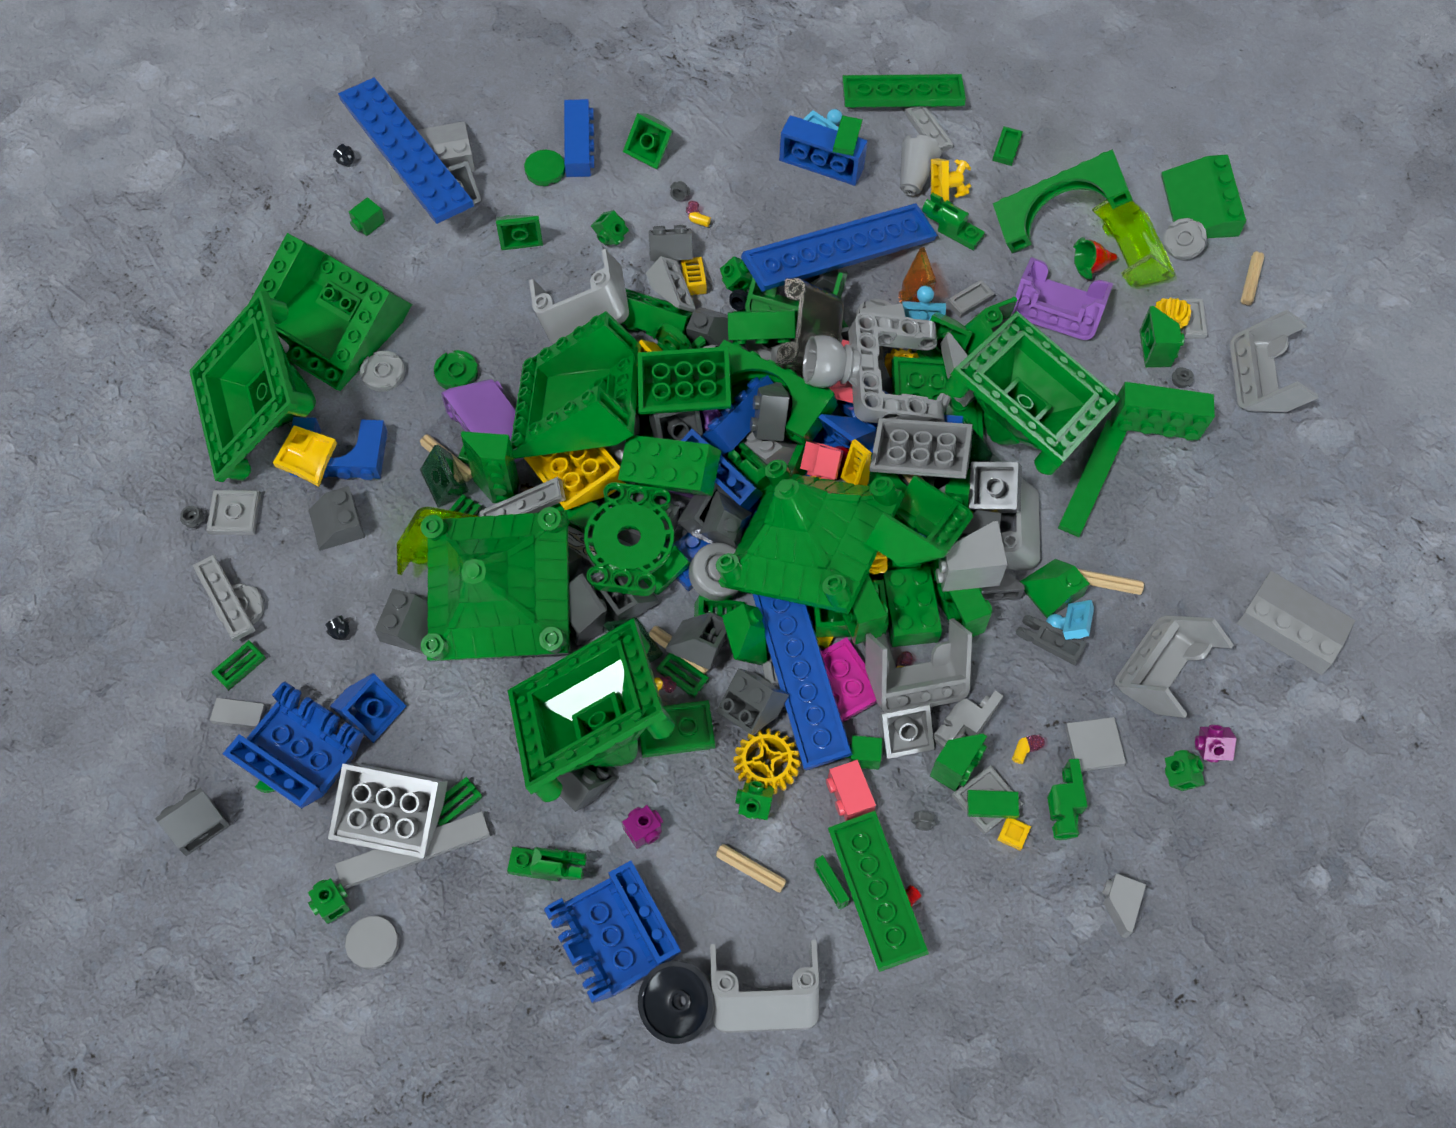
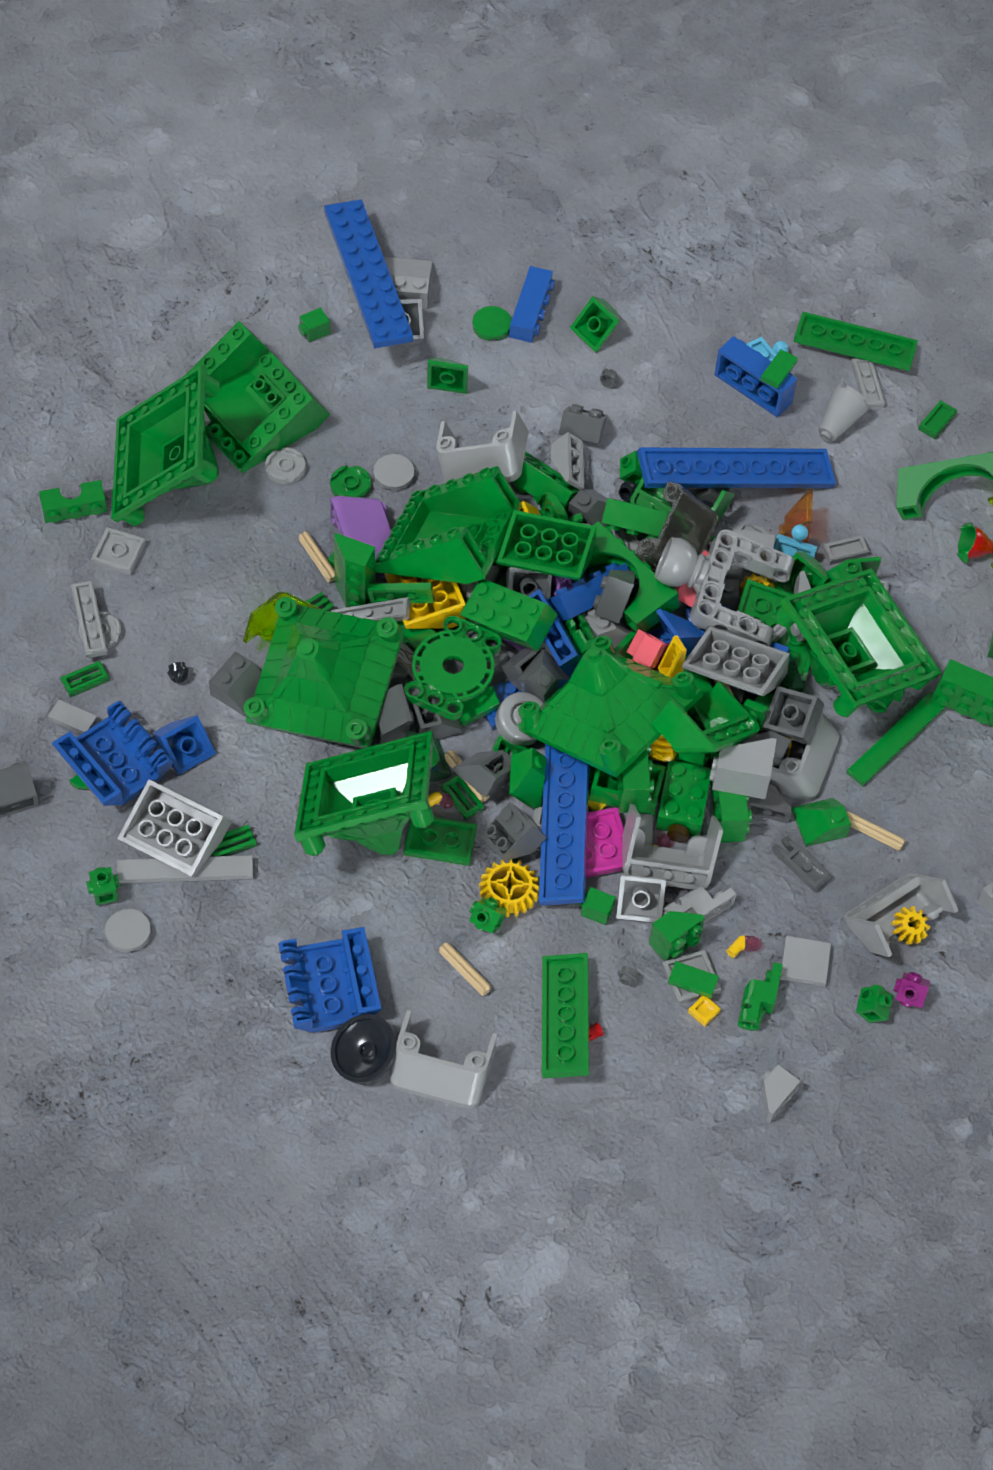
camera: 15 degrees right, 5 degrees down
(185, 469) = (89, 502): none -> green arch
(189, 512) = (81, 539): dark grey plate -> none
(305, 454) = (196, 518): yellow plate -> none
(336, 519) = (204, 581): dark grey slope -> none
(344, 155) = (312, 263): black plate -> none
(364, 459) = (242, 539): blue arch -> none
(443, 476) = (309, 571): clear green slope -> none
(496, 346) = (393, 472): none -> light grey tile
(546, 863) = (293, 912): green plate -> none
(564, 469) = (416, 592): none -> green plate
(585, 785) = (345, 858): dark grey slope -> none
(610, 228) = (532, 395): green brick -> none
(642, 826) = (384, 906): magenta brick -> none
(694, 287) = (593, 469): yellow slope -> none
(695, 216) = (616, 404): yellow arm -> none
(831, 882) = (529, 999): green tile -> none
(850, 790) = (573, 931): coral brick -> none
(918, 645) = (678, 833): none -> dark brown tile
(943, 179) = (859, 434): yellow piece -> none
(952, 221) = (855, 475): green plate -> none
(1059, 305) = (925, 577): medium lavender windscreen -> none
(1077, 620) = (828, 853): medium azure plate -> none
(1184, 664) = (914, 933): none -> yellow gear

